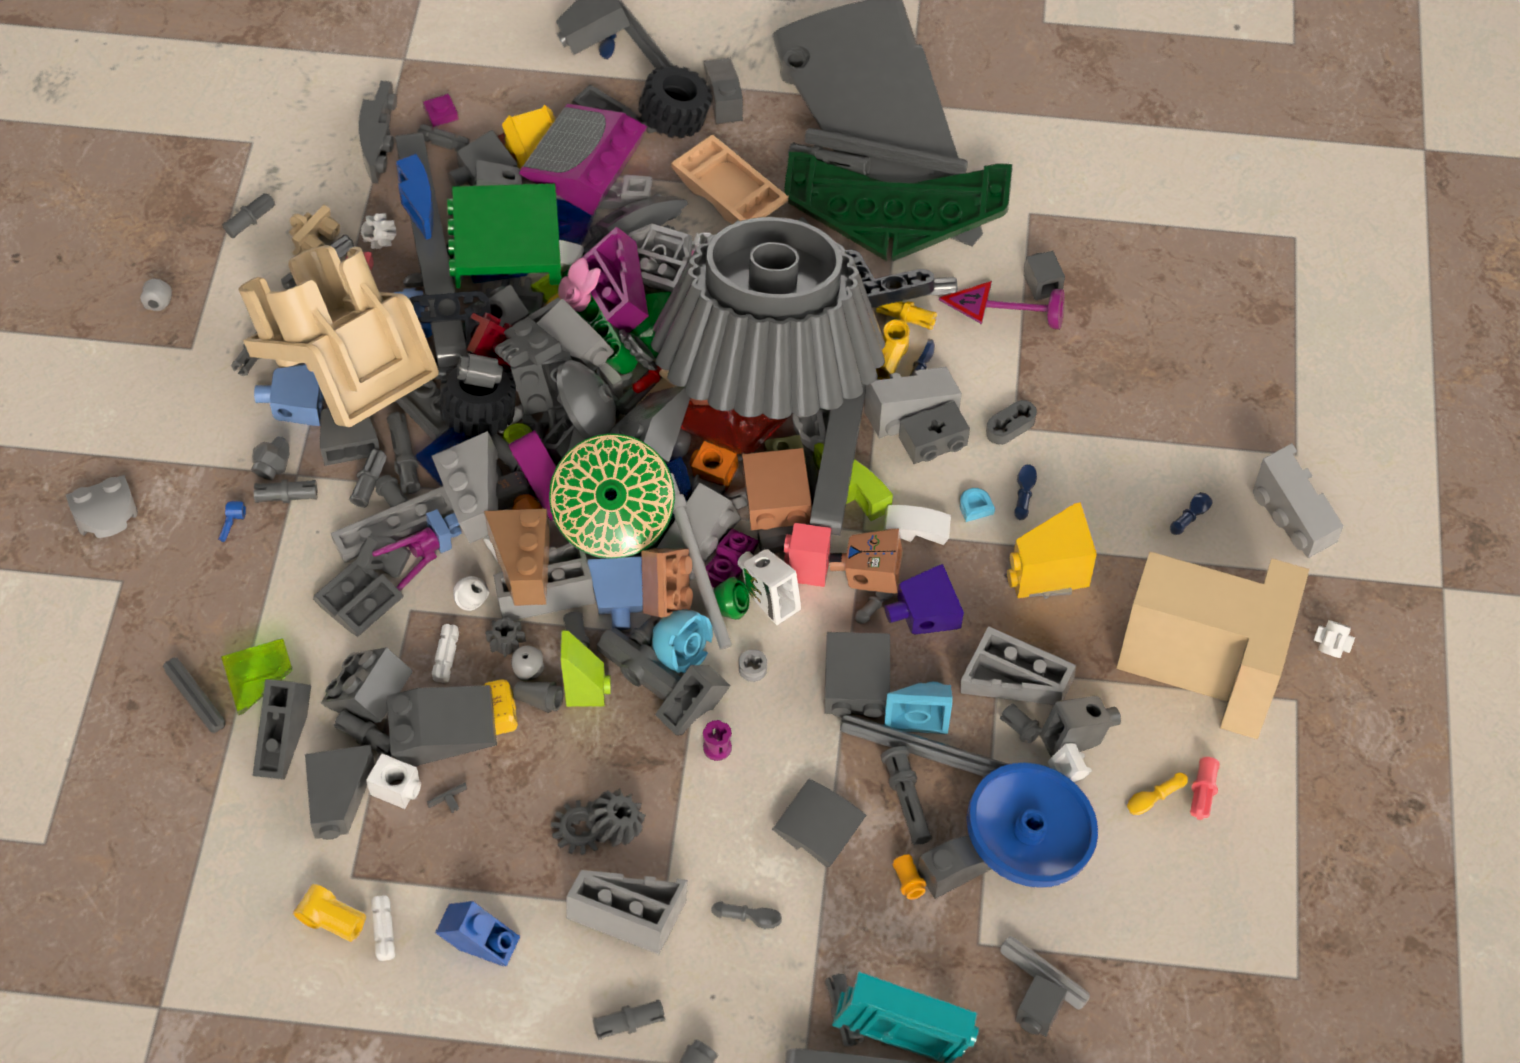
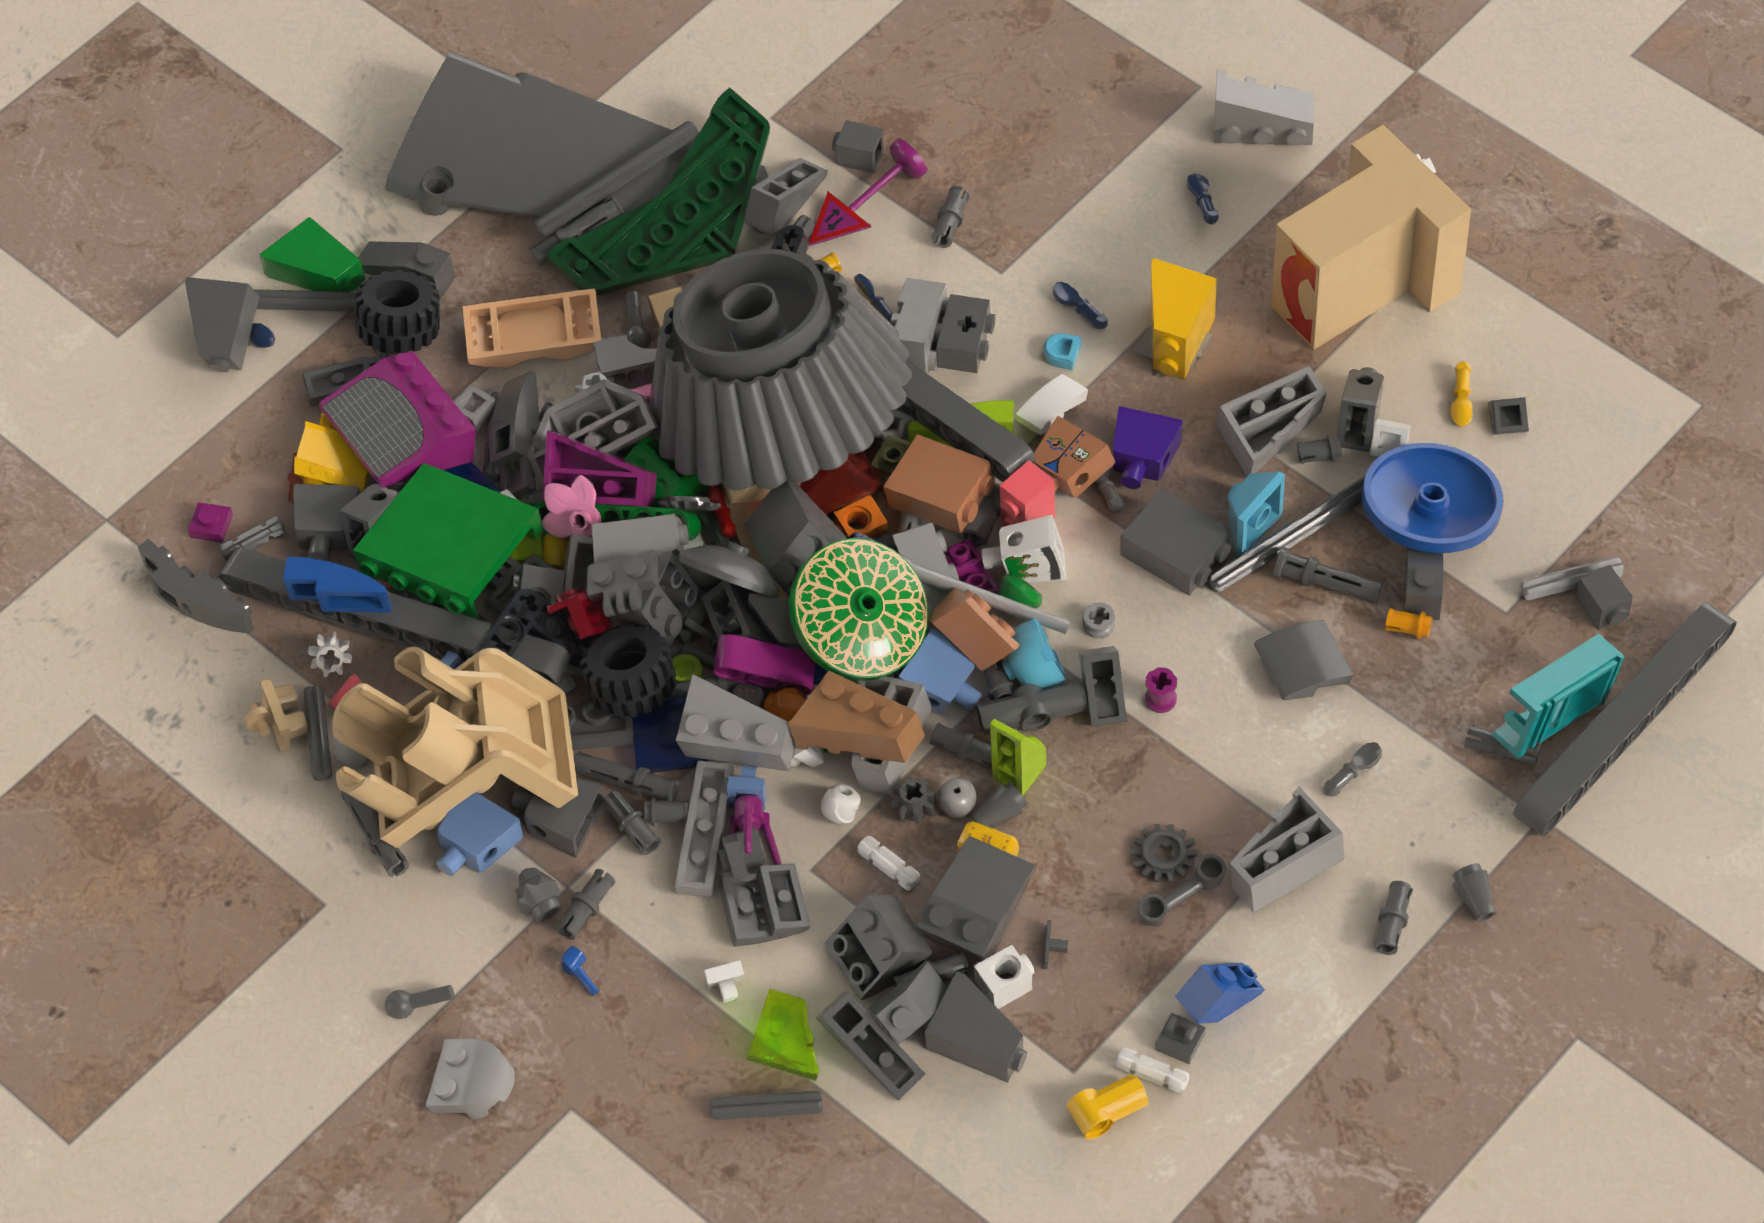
camera: 50 degrees left, 0 degrees up
(141, 435) = (401, 1003): none -> dark grey bar
(156, 294) = (235, 897): light grey piece -> none
(248, 215) = (200, 762): dark grey axle -> none
(275, 609) = (725, 978): none -> white tile
(323, 730) = (910, 1002): none -> dark grey slope
(421, 931) = (1180, 1038): none -> dark grey tile
(479, 370) = (616, 641): dark grey brick -> none
(521, 850) = (1207, 876): none -> dark grey bar
(616, 817) = (1184, 812): dark grey gear -> none
(686, 34) = (312, 260): none -> green slope
(960, 255) = (782, 195): none -> dark grey slope
(1008, 419) = (993, 270): dark grey beam -> none
(1032, 365) = (950, 216): none -> dark grey pin
(1165, 839) = (1508, 415): none -> dark grey slope
(1204, 787) = (1484, 356): coral axle -> none

